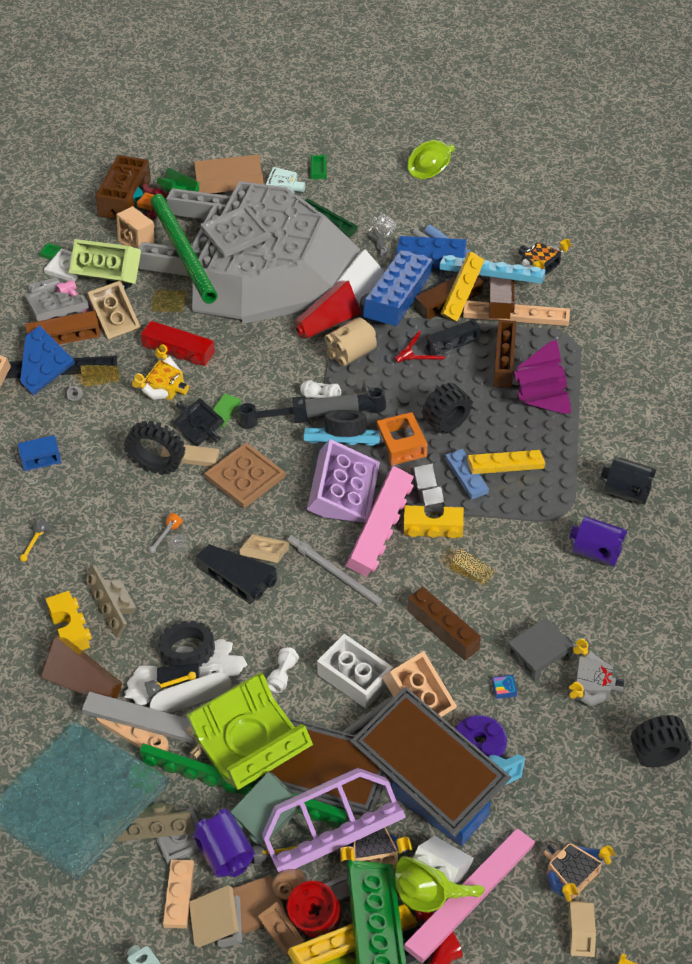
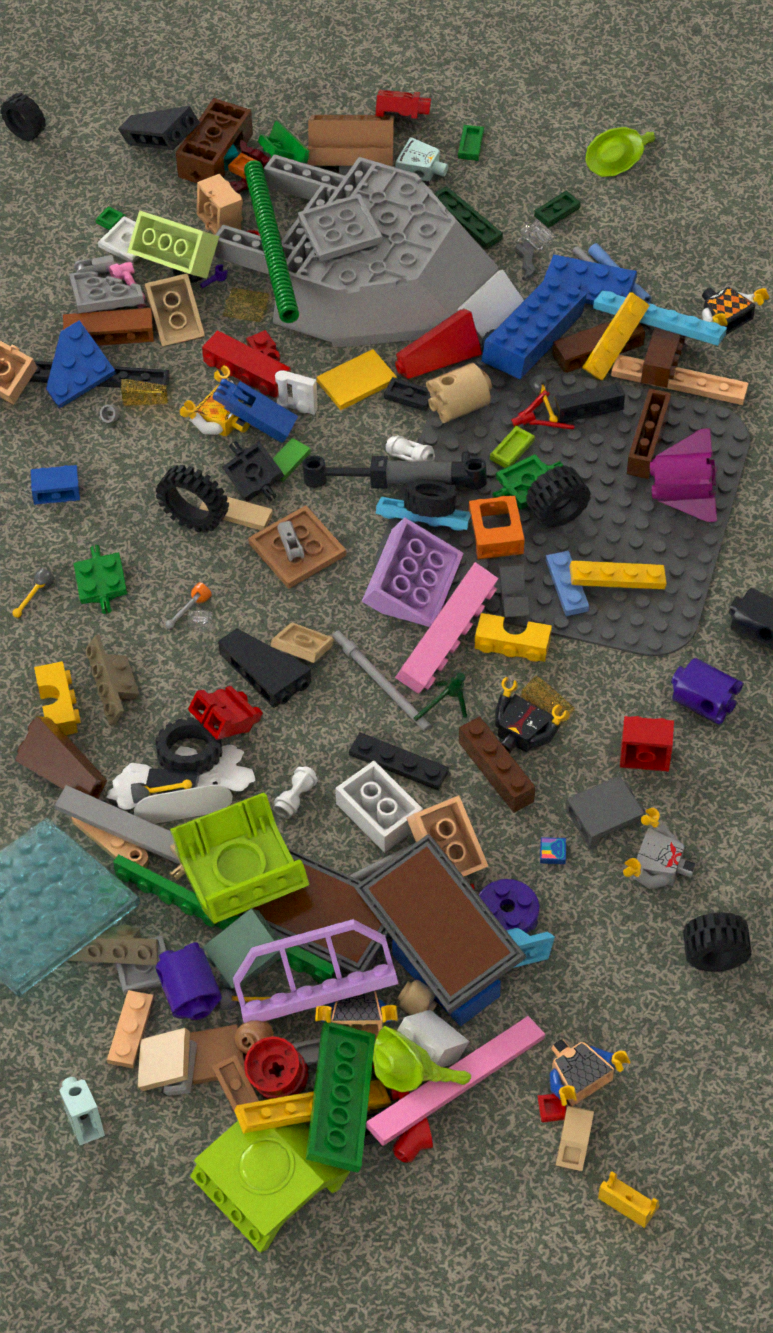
camera: 10 degrees right, 5 degrees up
(79, 181) = (159, 128): none -> black slope
(88, 521) = (100, 578): none -> green plate
(143, 282) = (219, 275): none -> dark purple hand
(188, 326) = (263, 343): none -> red plate
(192, 374) = (264, 412): none -> blue hinge
(212, 611) = (224, 709): none -> red hips
(227, 355) = (303, 390): none -> white plate
(239, 470) = (290, 540): none -> light grey bar
(262, 143) = (402, 102): none -> red hips
(266, 344) = (356, 379): none -> yellow tile
(309, 349) = (407, 394): none -> black plate
(362, 632) = (399, 761): none -> black plate
(394, 204) = (557, 209): none -> dark green plate
(396, 567) = (453, 689): none -> dark green plant
(400, 378) = (512, 447): none -> lime tile
(411, 329) = (538, 385): none -> hinge
(413, 399) = (519, 477): none -> green plate
(420, 827) = (416, 998): none -> tan head
(457, 587) = (523, 723): none -> black torso
(554, 905) = (551, 1108): none -> red tile
(562, 589) = (646, 743): none -> red brick

